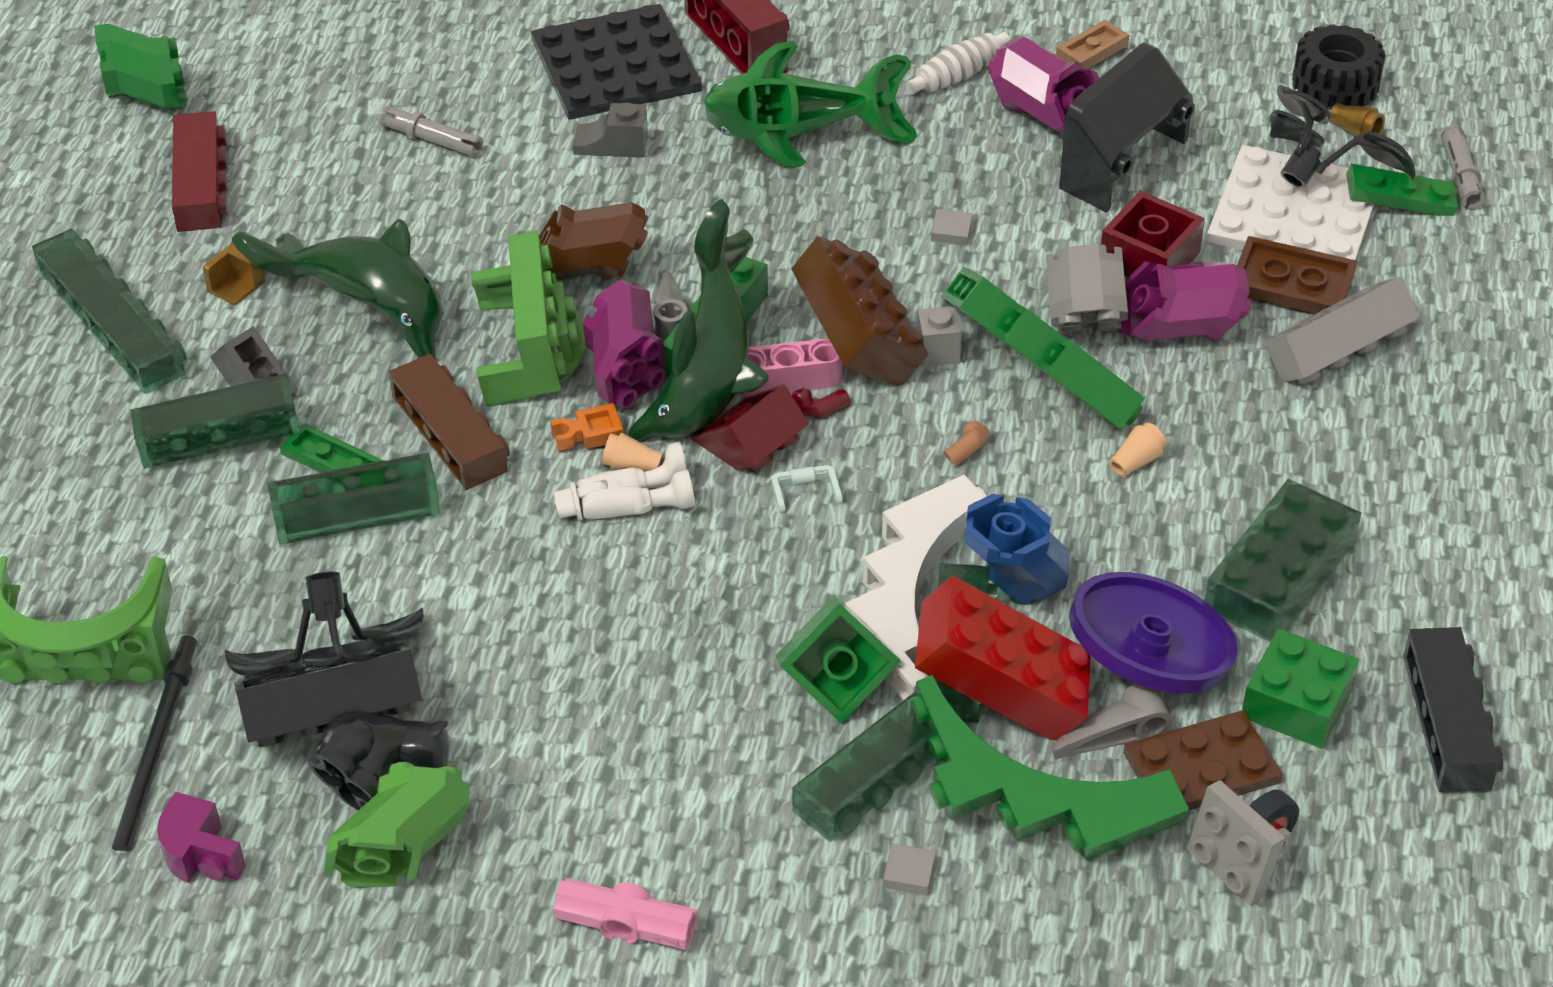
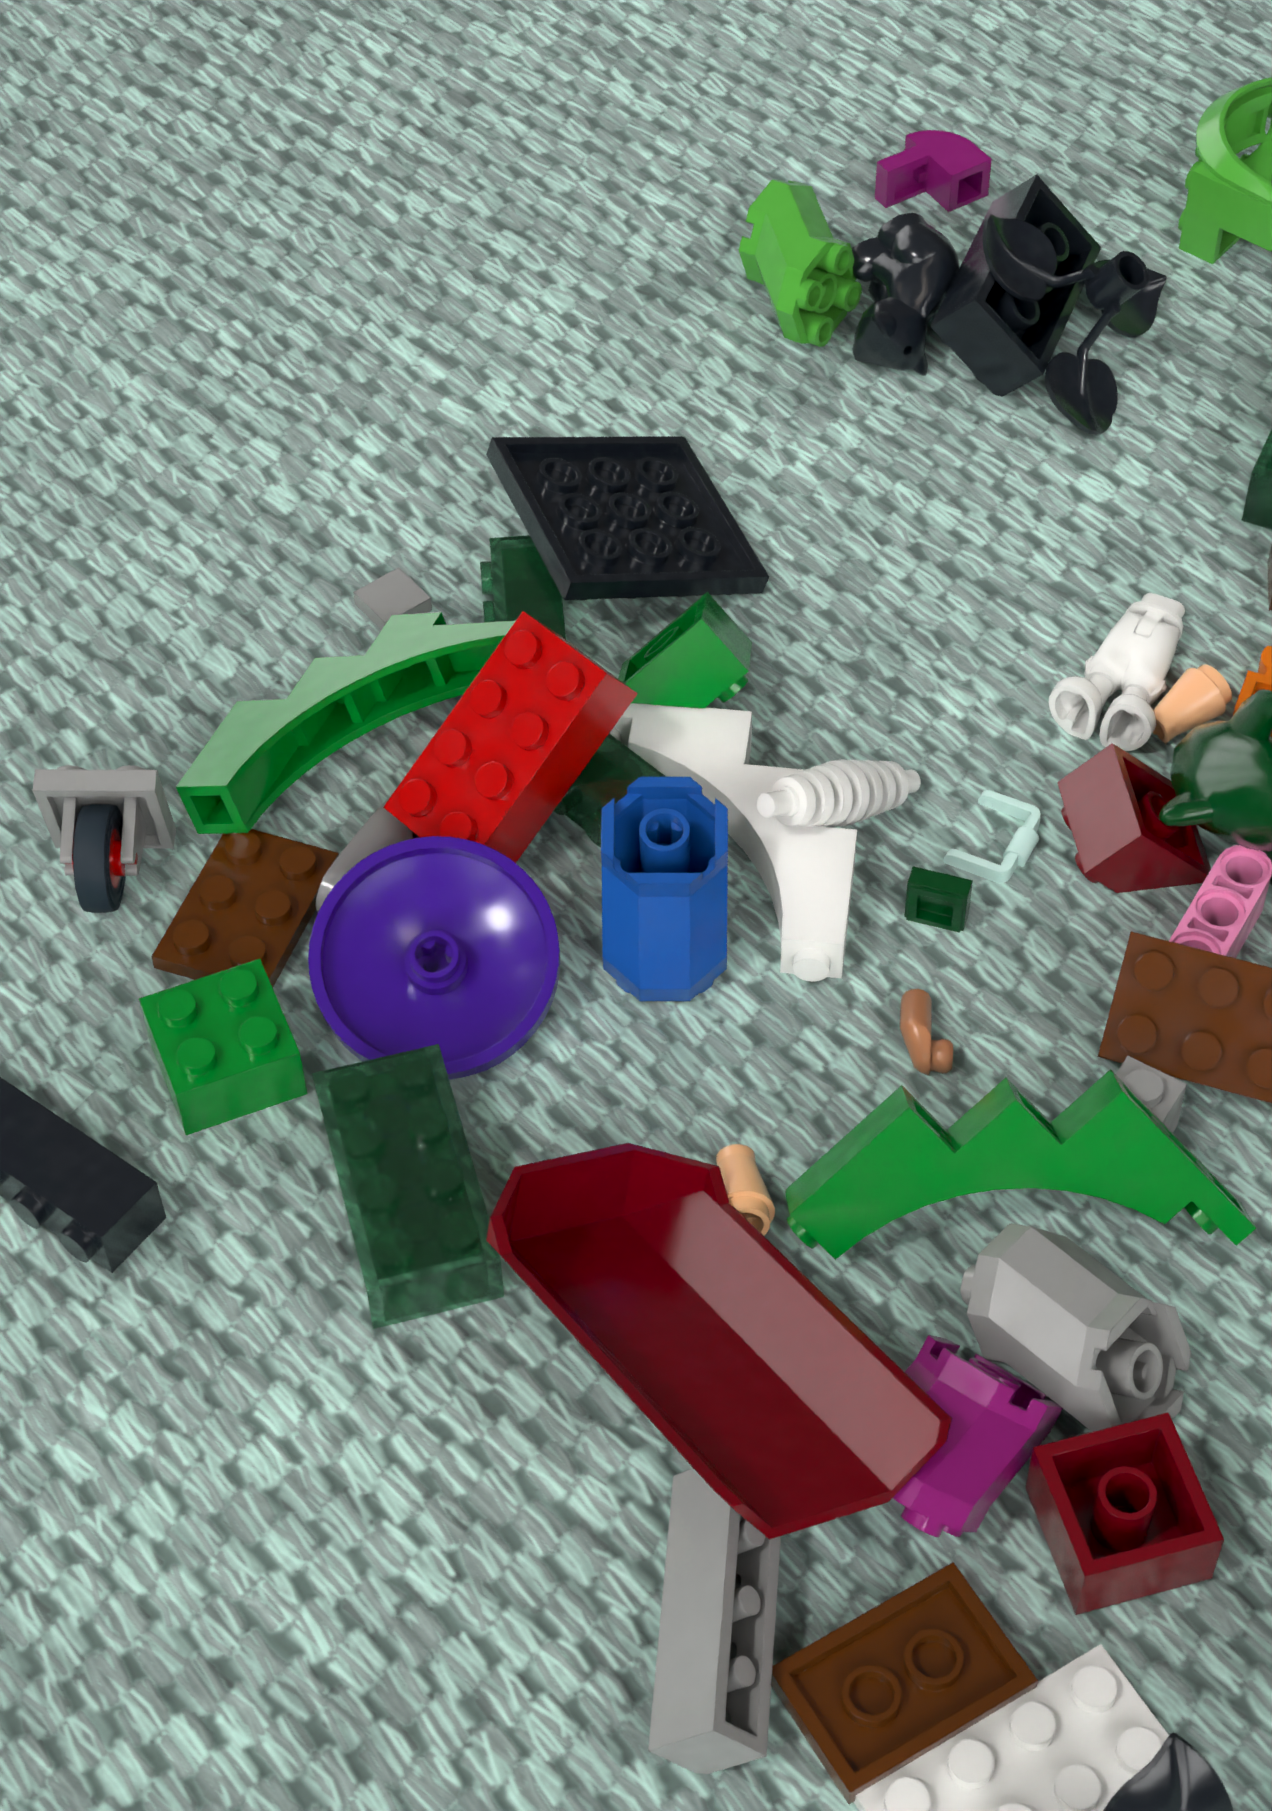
camera: 130 degrees right, 5 degrees up
(175, 676) = (1167, 246): black bar -> none
(625, 913) = (559, 381): bright pink piece -> none
(740, 765) = (625, 517): none -> black plate
(823, 406) = (1138, 917): dark red arm -> none
(866, 530) = (838, 793): none -> white piece
(882, 474) = (938, 899): none -> dark green tile
(1249, 376) = (716, 1335): none -> dark red piece

